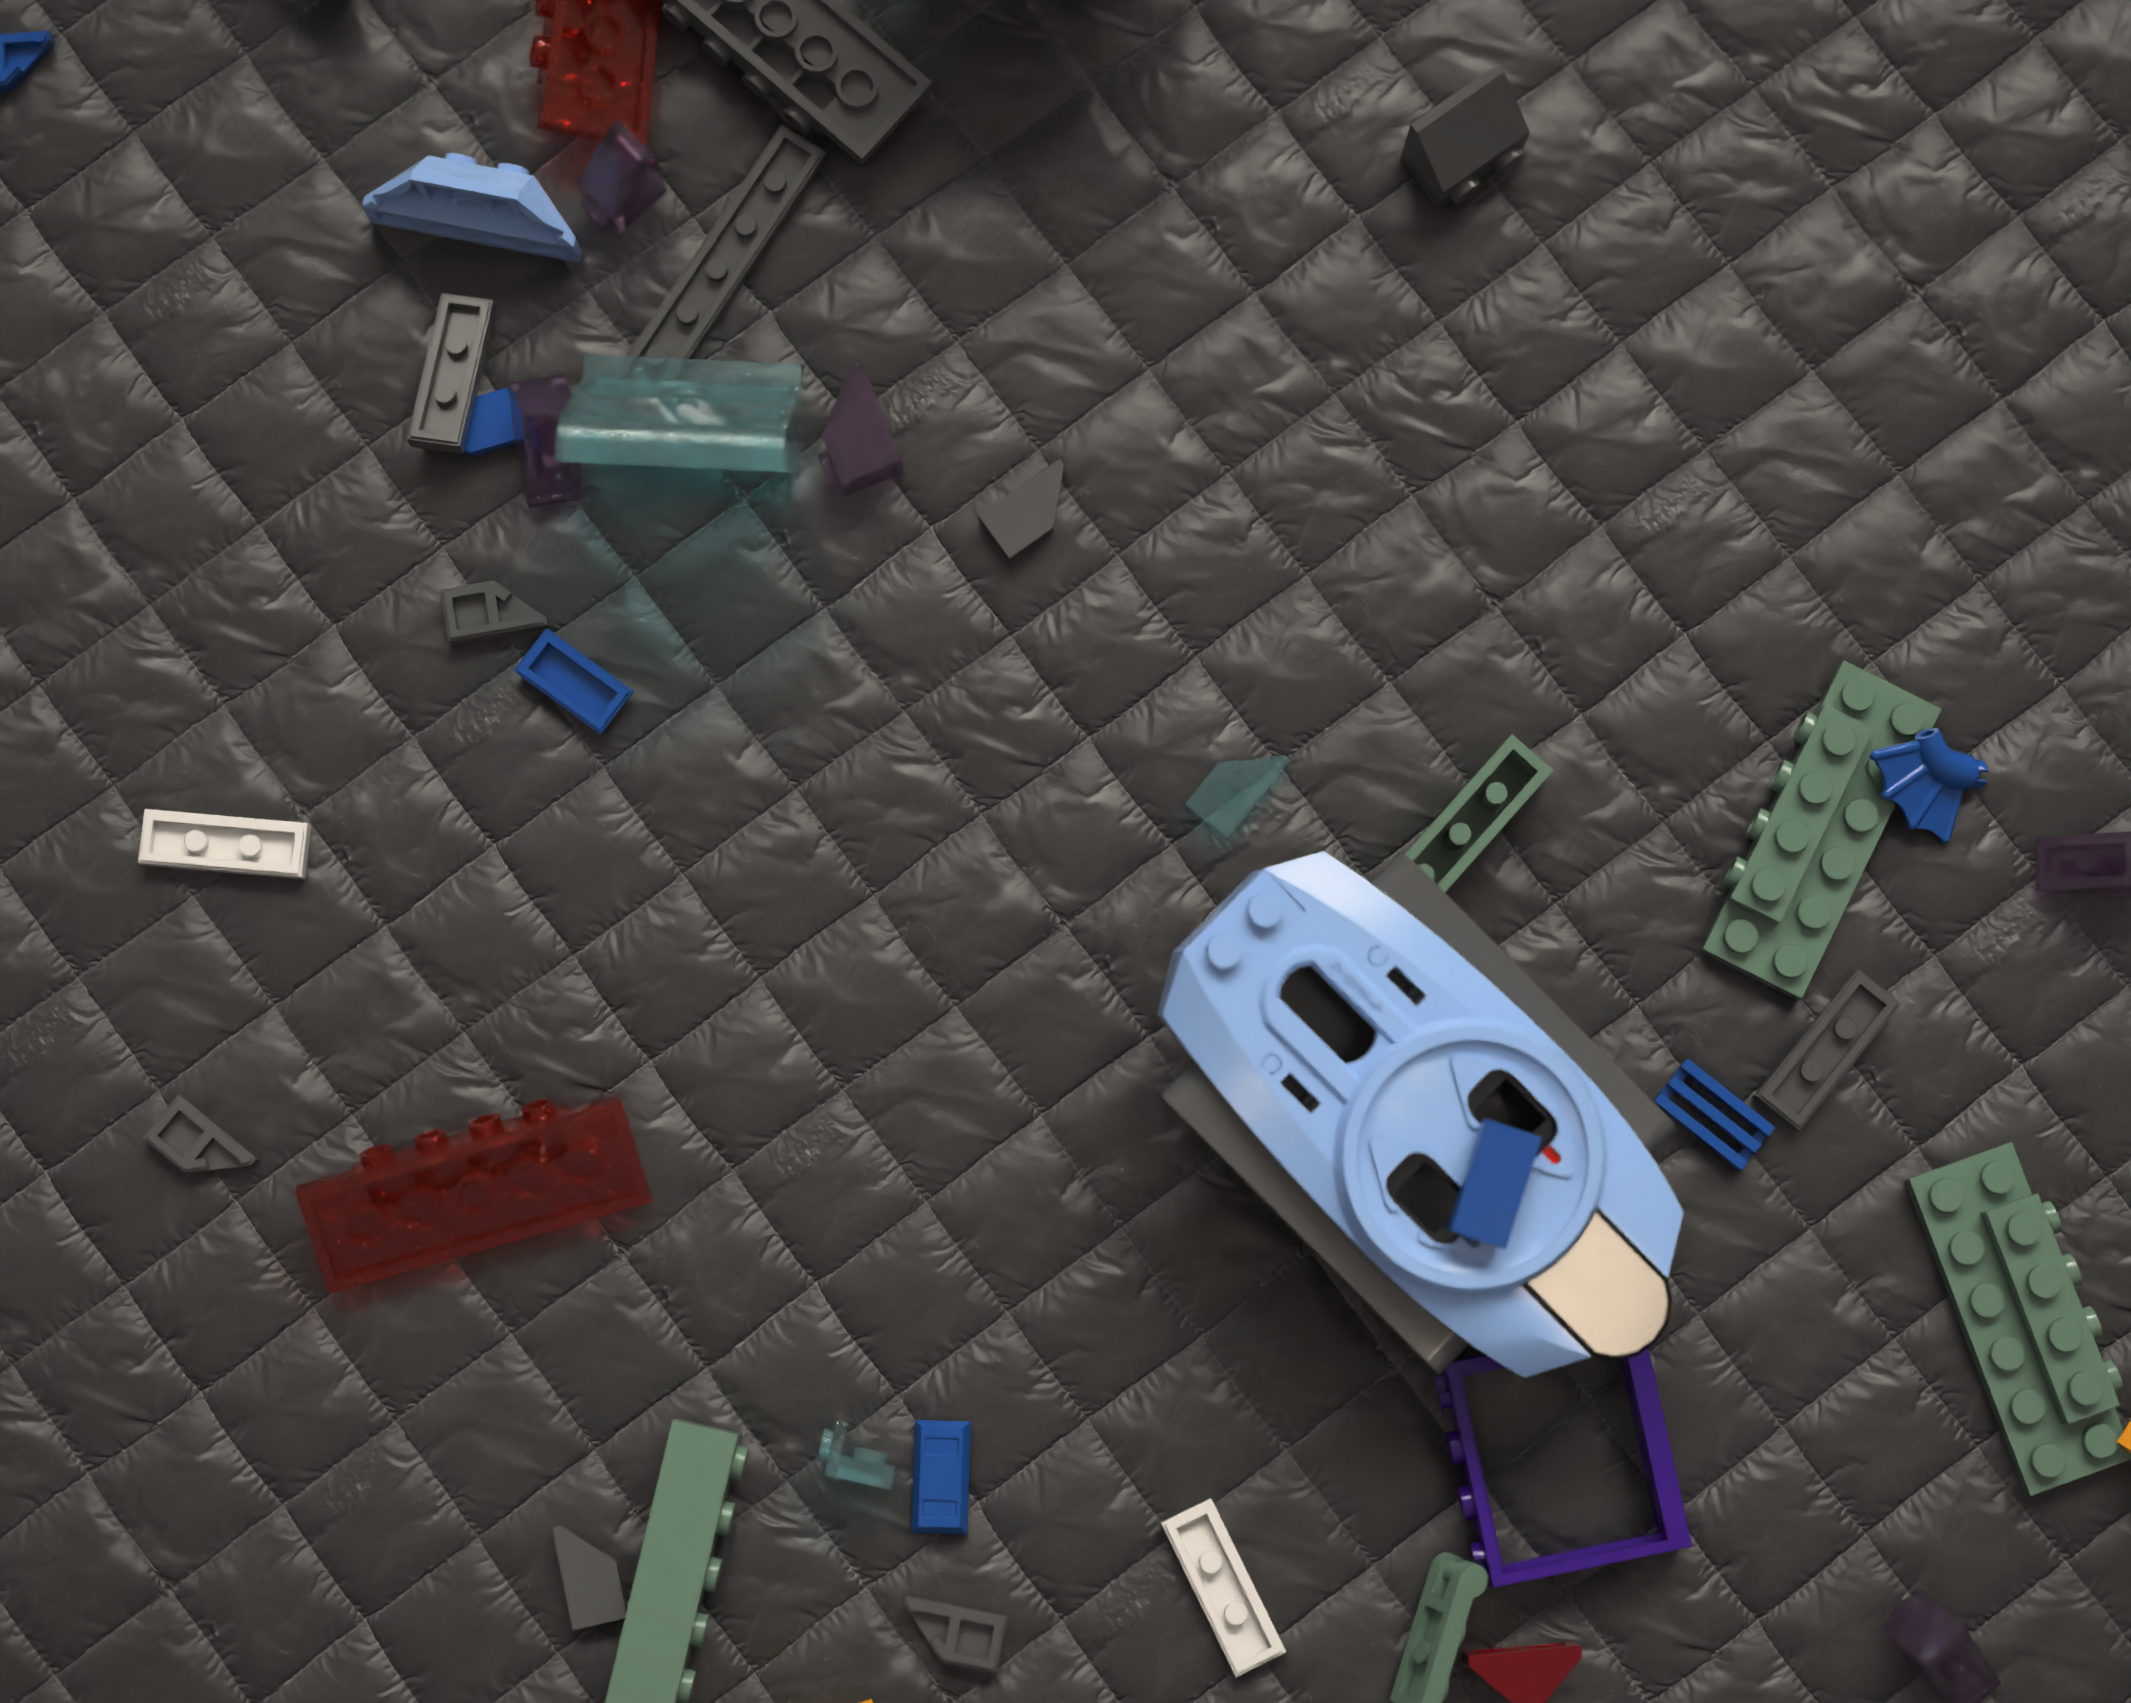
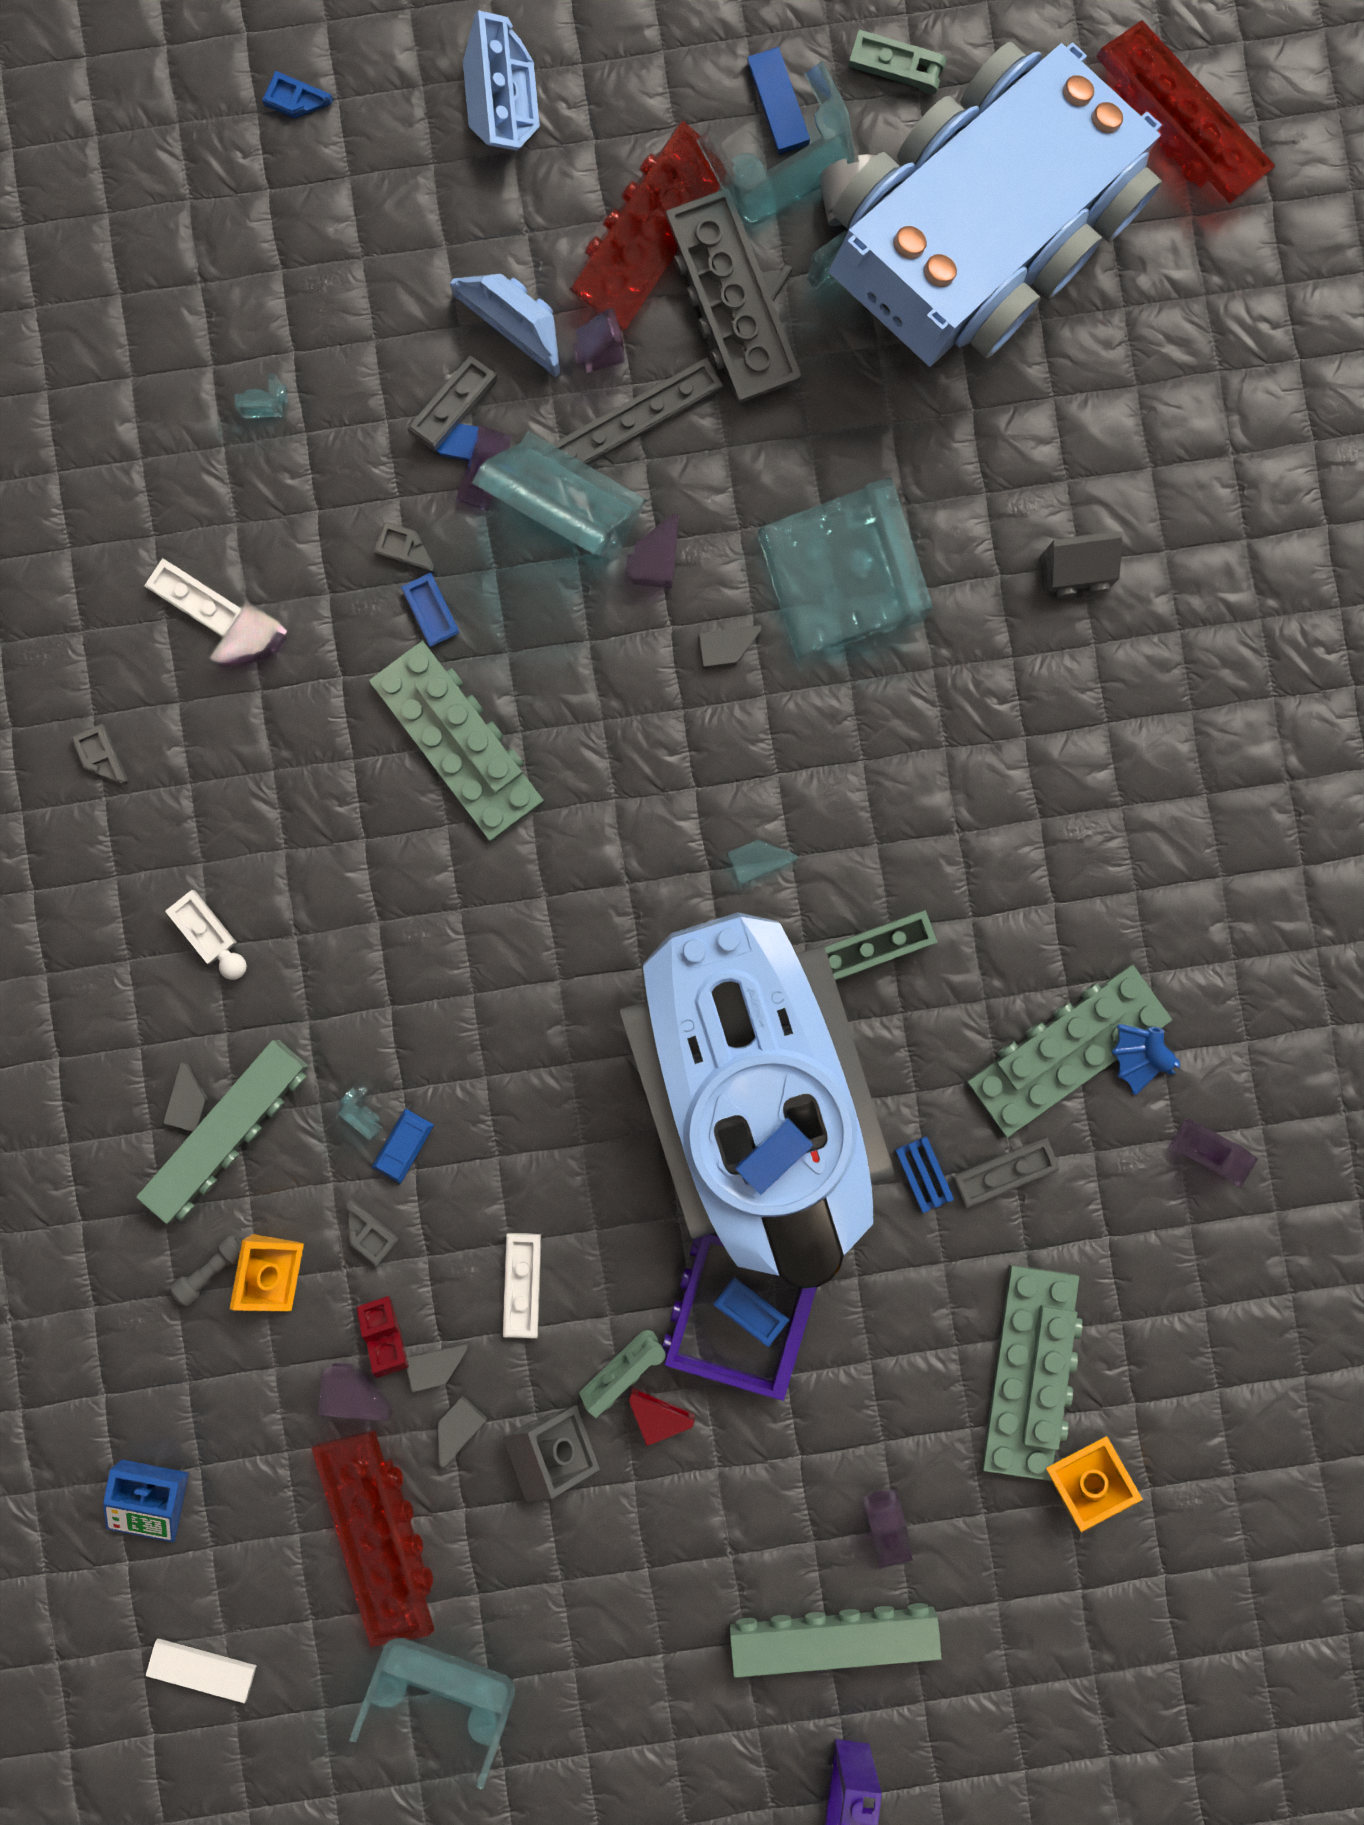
camera: 30 degrees right, 5 degrees up
(176, 515) = (258, 403): none -> clear light blue bracket
(334, 857) = (250, 638): none -> slope
(473, 1189) = (231, 859): clear red plate -> none
(494, 1319) = (207, 934): none -> white plate
(711, 846) = (457, 740): none -> sand green plate
(1139, 318) = (845, 569): none -> clear light blue panel
(1575, 1441) = (751, 1311): none -> blue tile

